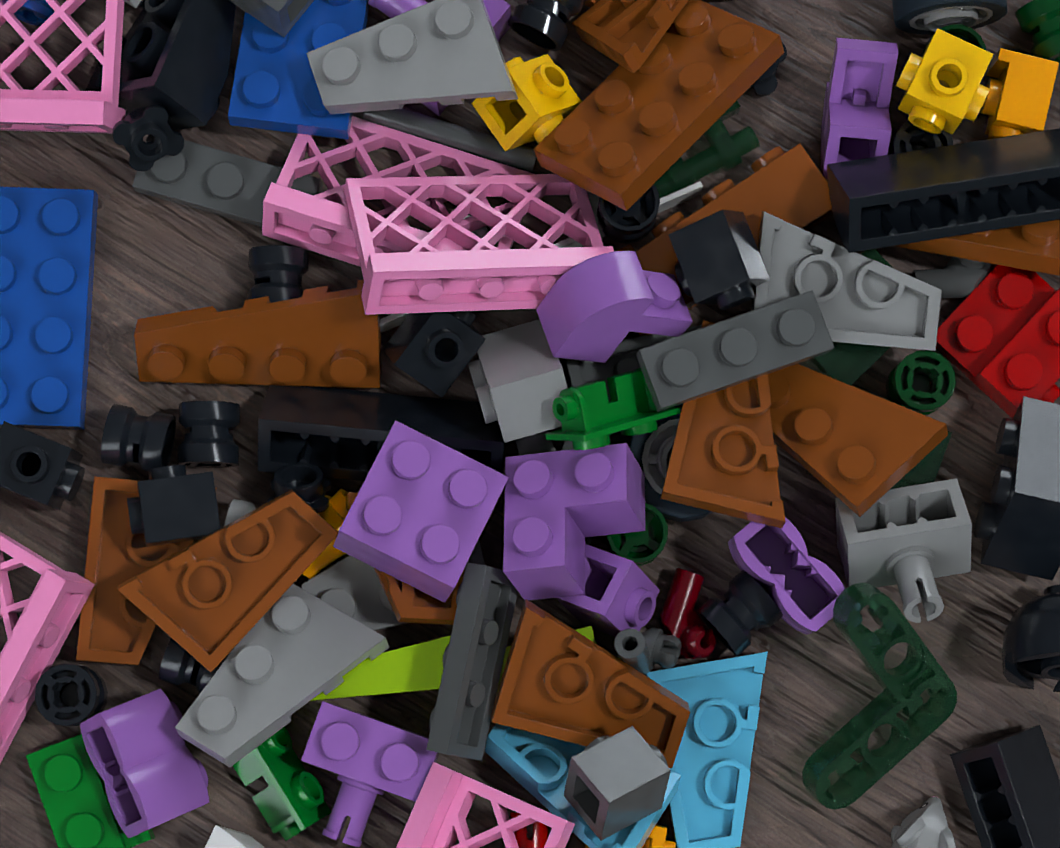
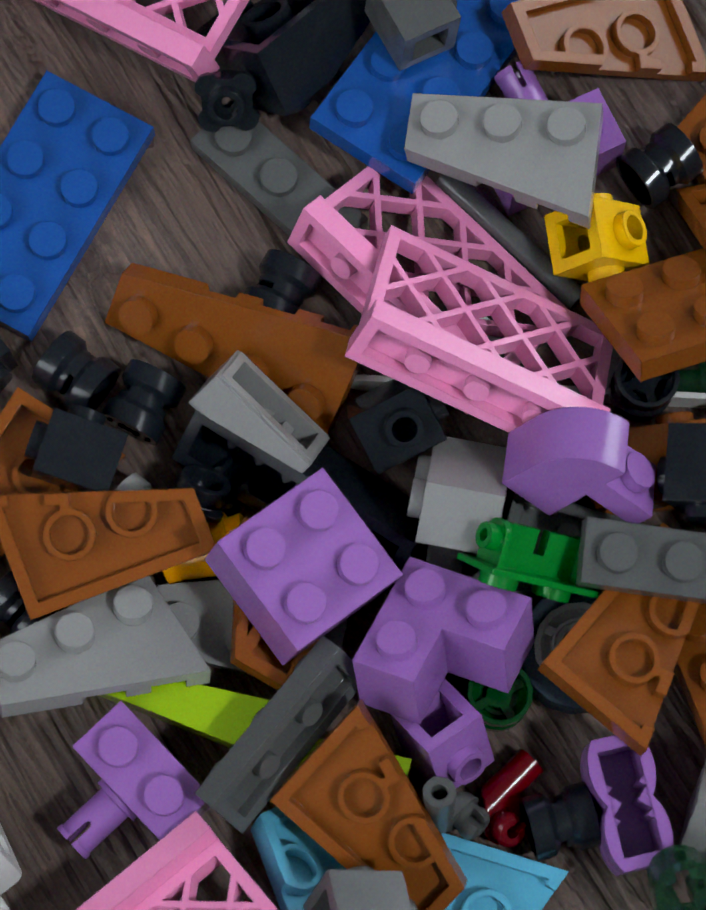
camera: 25 degrees right, 5 degrees down
(292, 795) = (49, 778): green hinge -> none
(314, 395) = (259, 412): none -> light grey slope

